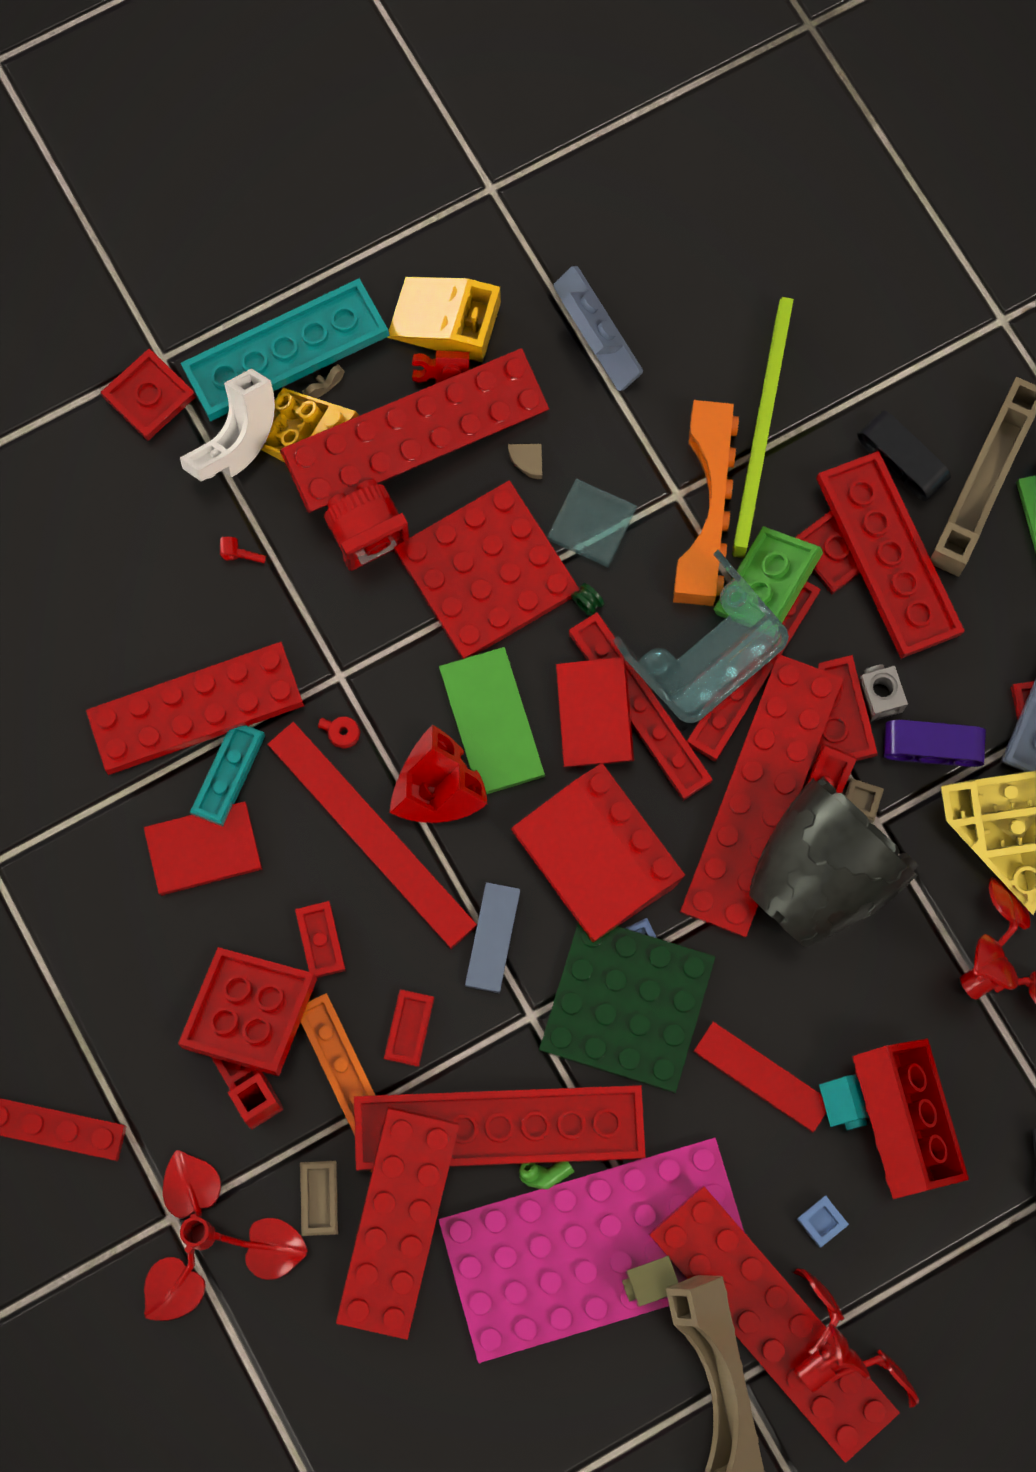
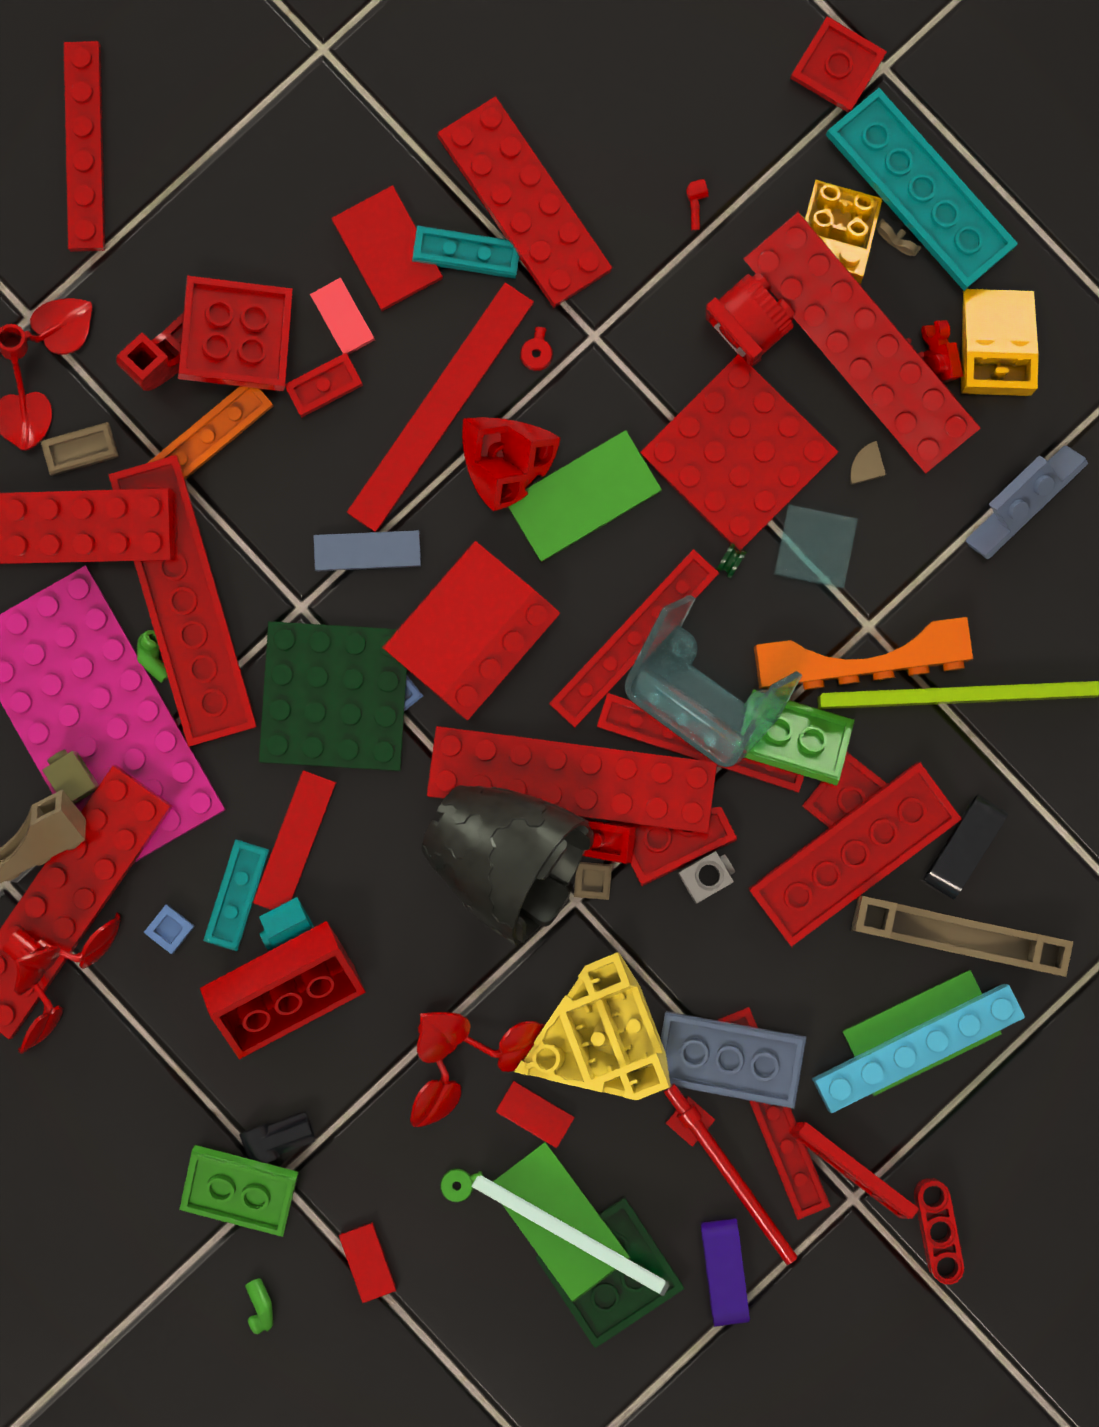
camera: 75 degrees right, 10 degrees up
(244, 431) = (813, 169): white arch -> none
(258, 907) = (342, 317): none -> coral tile
(409, 1028) = (260, 492): red tile -> none
(595, 712) = (613, 594): red tile -> none
(802, 1147) = (236, 895): none -> teal tile
(934, 743) = (667, 940): dark purple beam -> none

